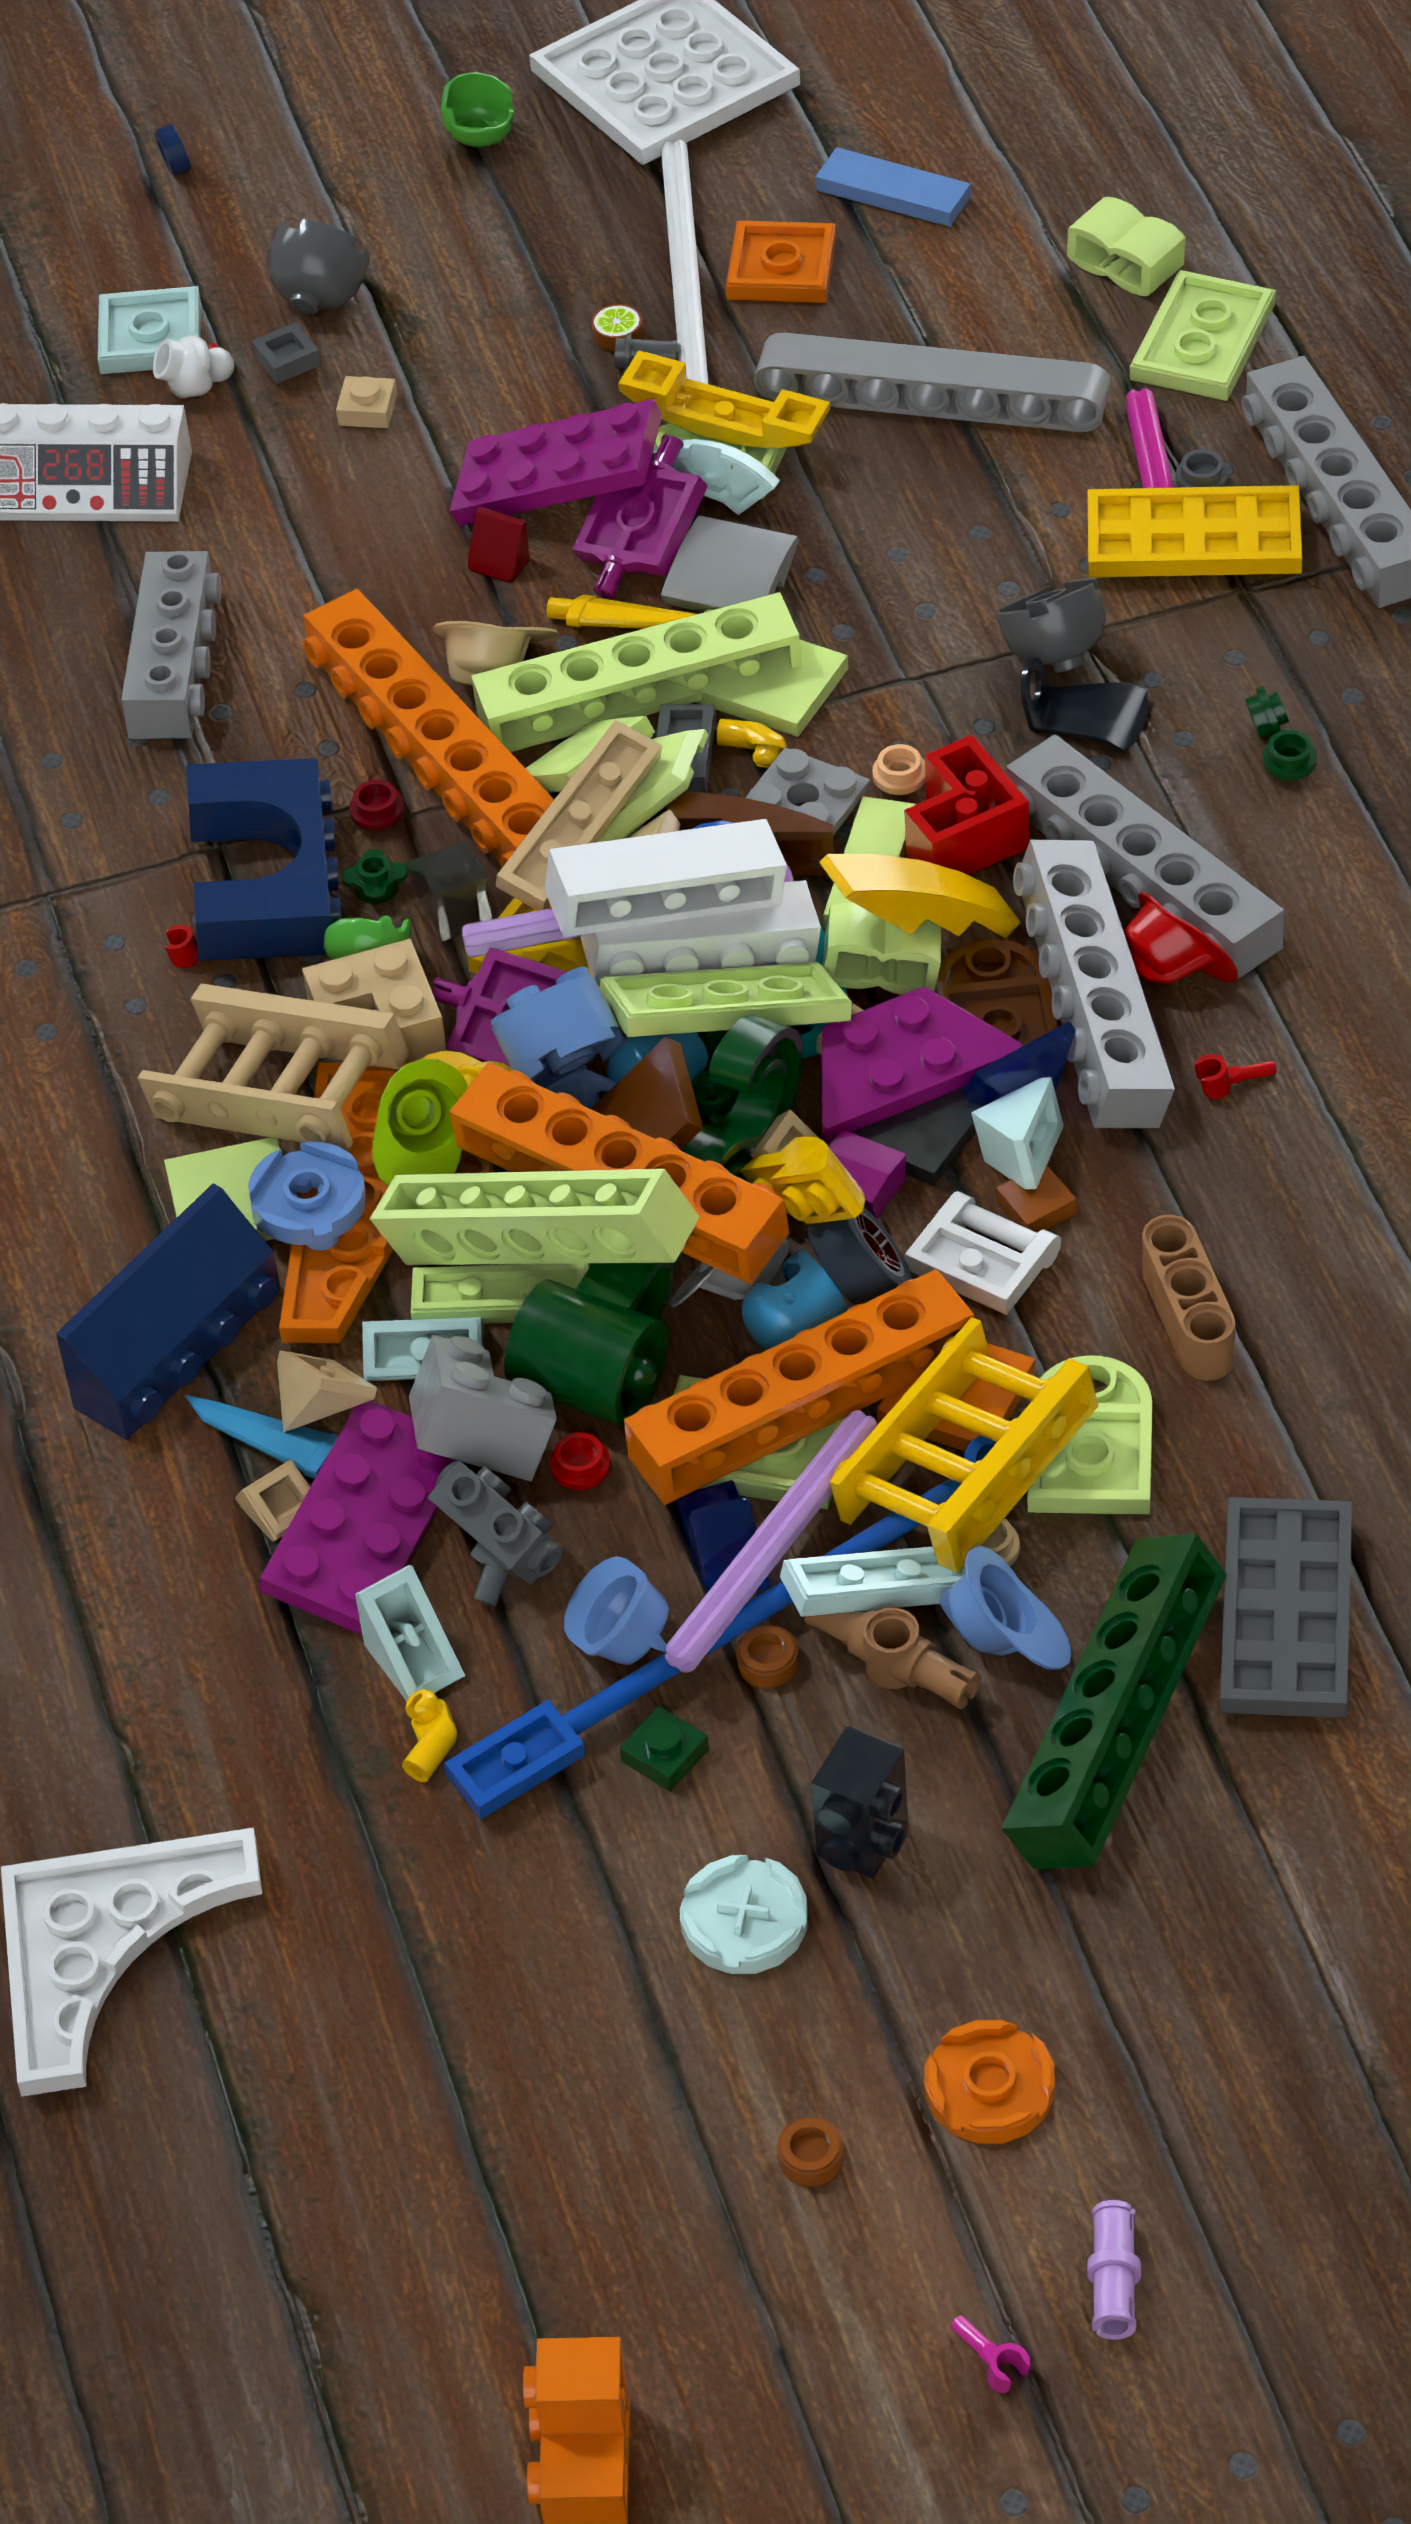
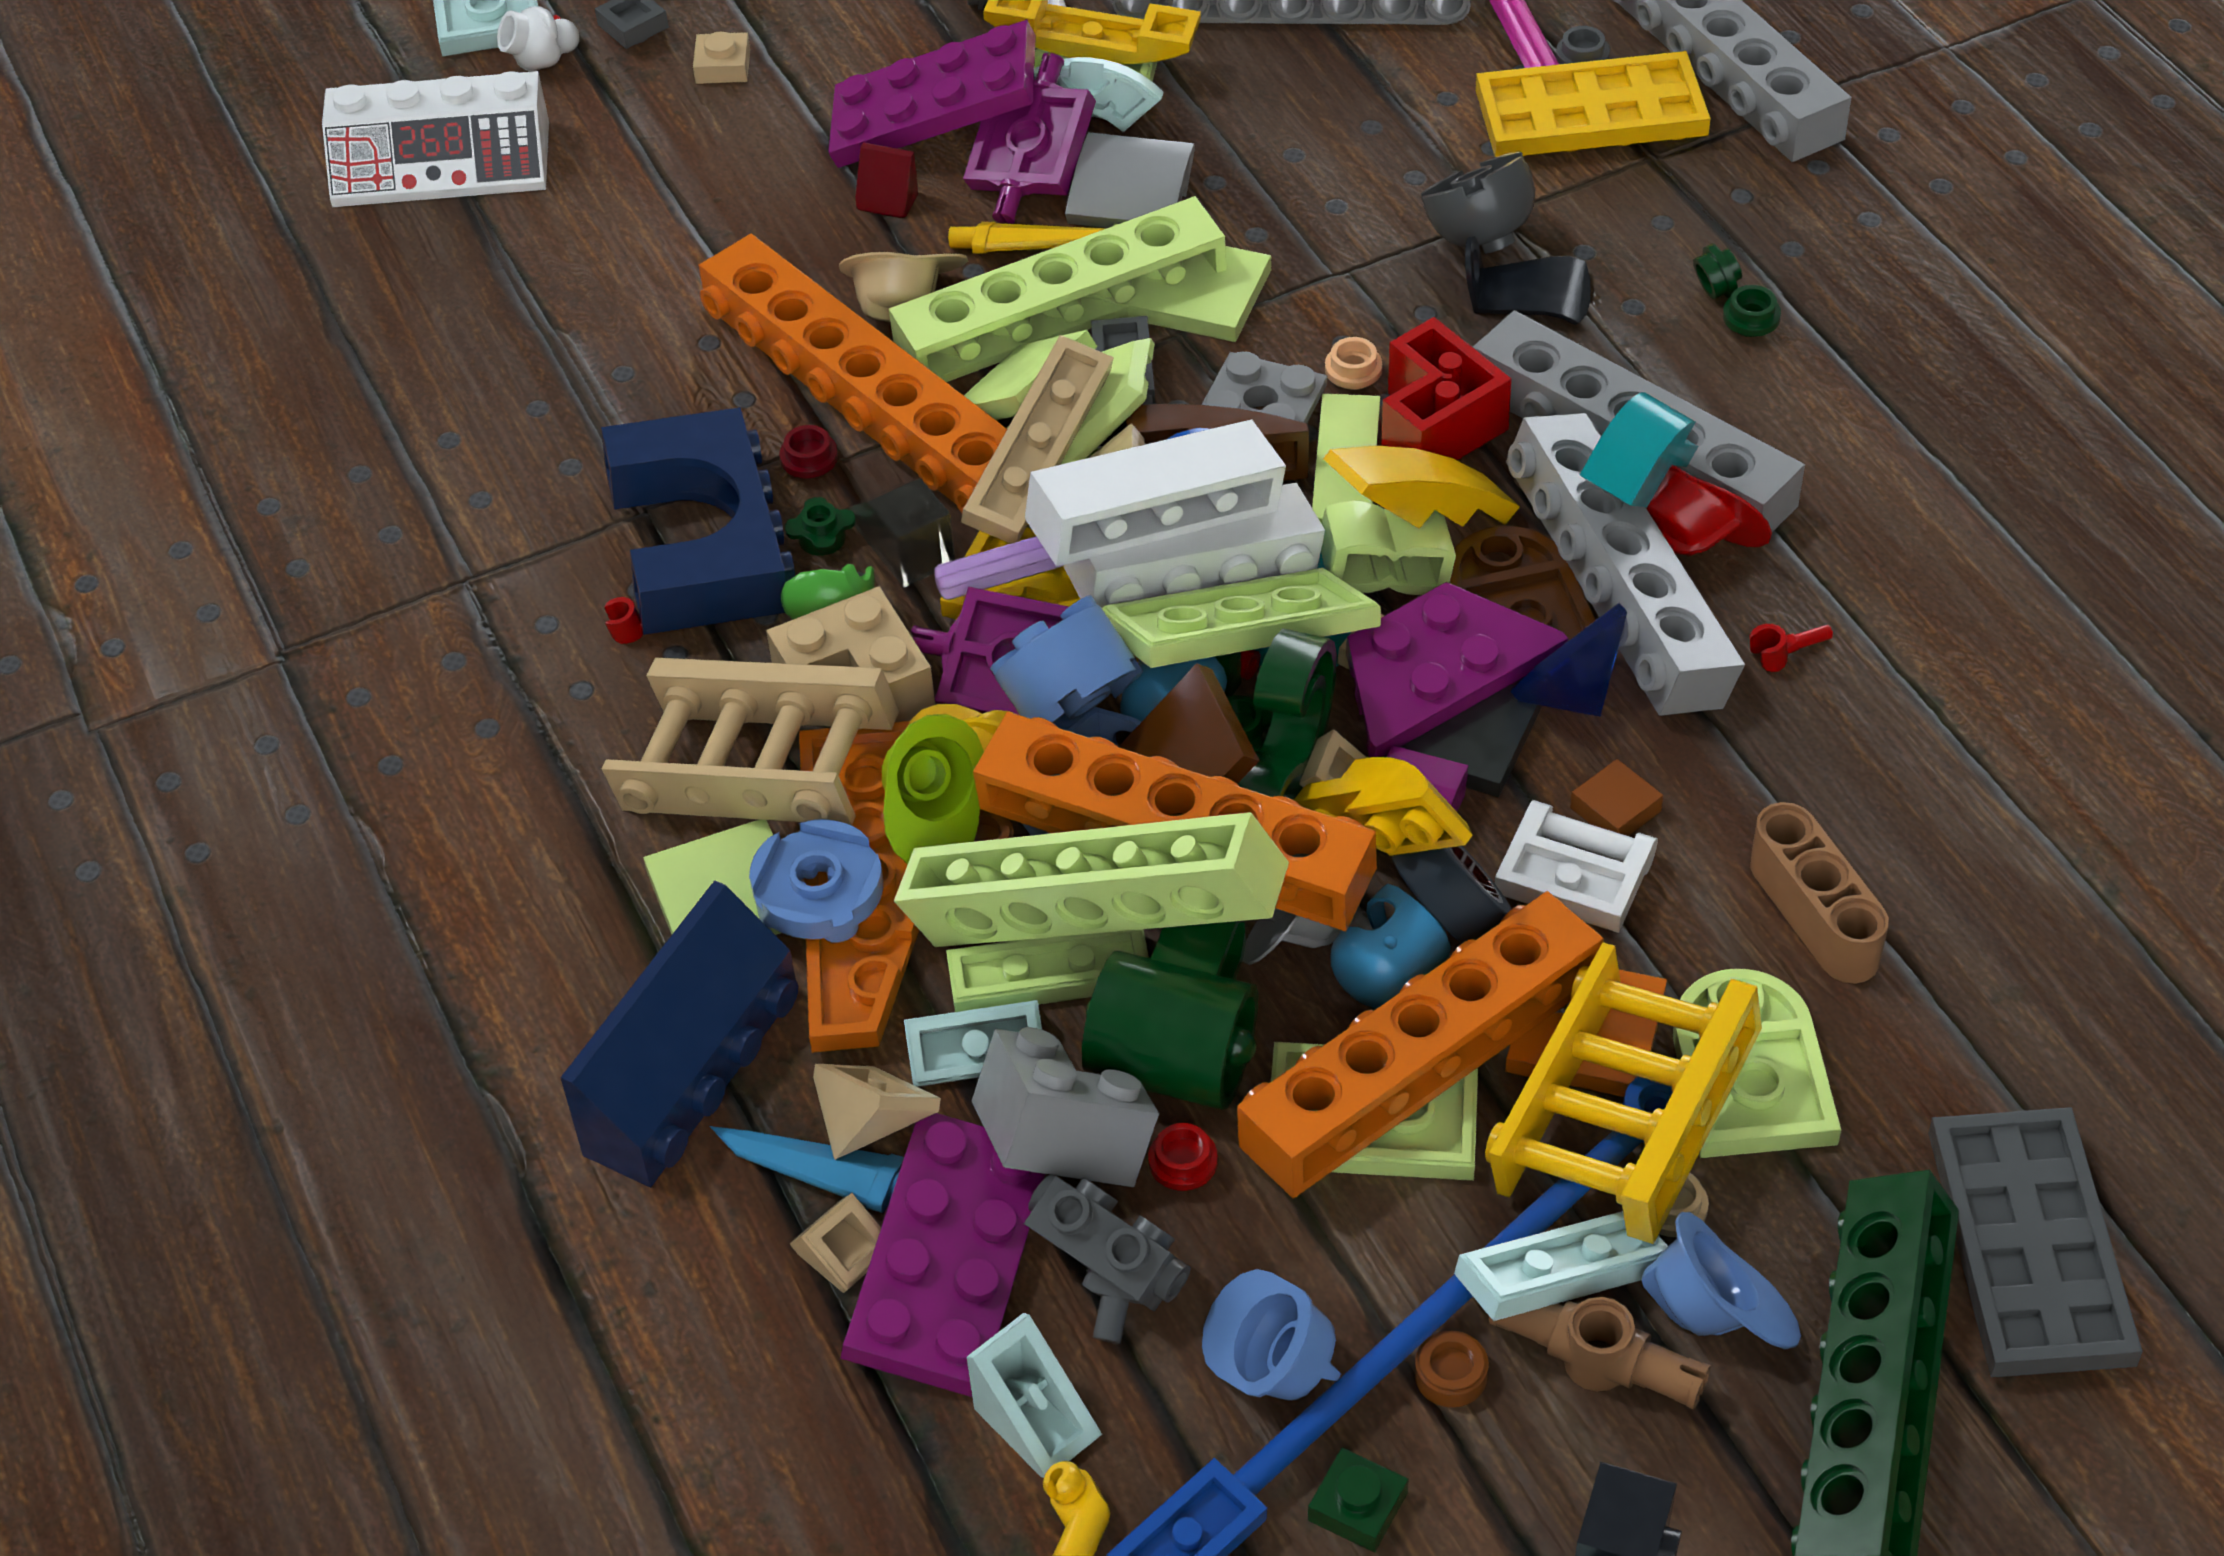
camera: 10 degrees left, 0 degrees up
(169, 645) = (560, 310): light grey brick -> none
(716, 1528) = (1368, 1232): clear blue slope -> none
(751, 735) = (1192, 344): yellow arm -> none
(765, 1546) = (1429, 1237): lavender axle -> none
(1020, 1131) = (1583, 730): light aqua slope -> none
(1120, 881) = (1640, 450): none -> teal brick

